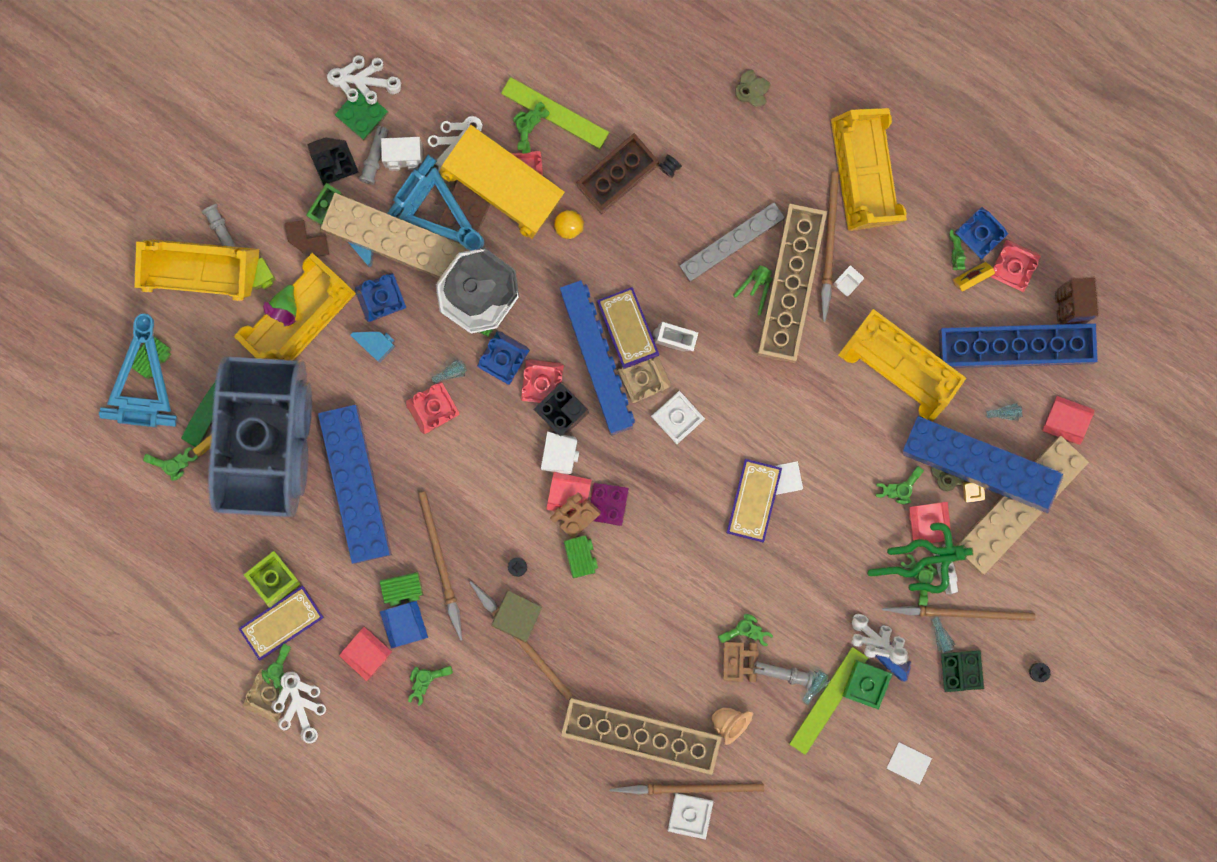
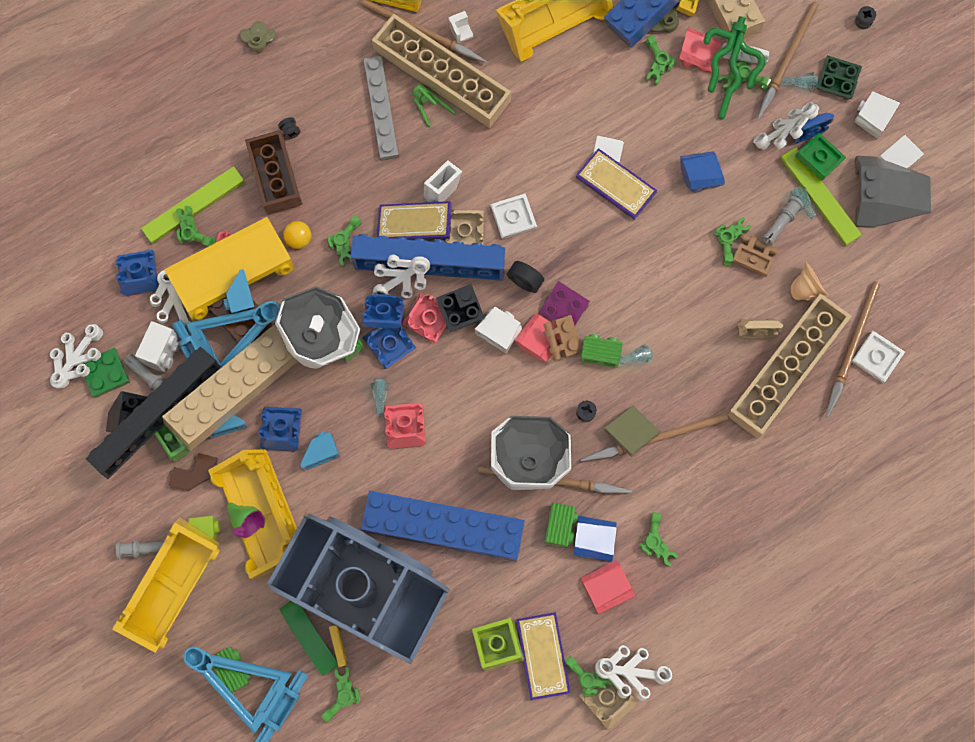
camera: 70 degrees left, 10 degrees down
(334, 179) = (147, 417): none -> black brick
(451, 533) = (530, 452): none -> dark grey rock
(467, 95) = (137, 272): none -> blue slope
(476, 204) = (239, 295): none -> dark azure slope
(525, 340) = (383, 311): none -> blue slope
(577, 353) = (417, 265): none -> white plant
(582, 268) = (341, 240): none -> bright green piece
(593, 595) = (640, 355): none -> clear light blue cone
(618, 455) = (525, 276): none -> black tyre
(668, 692) = (759, 328): none -> tan slope
(803, 577) = (701, 171): none -> blue slope
(862, 765) = (889, 192): none -> dark grey wedge
(938, 721) = (875, 113): none -> white torso

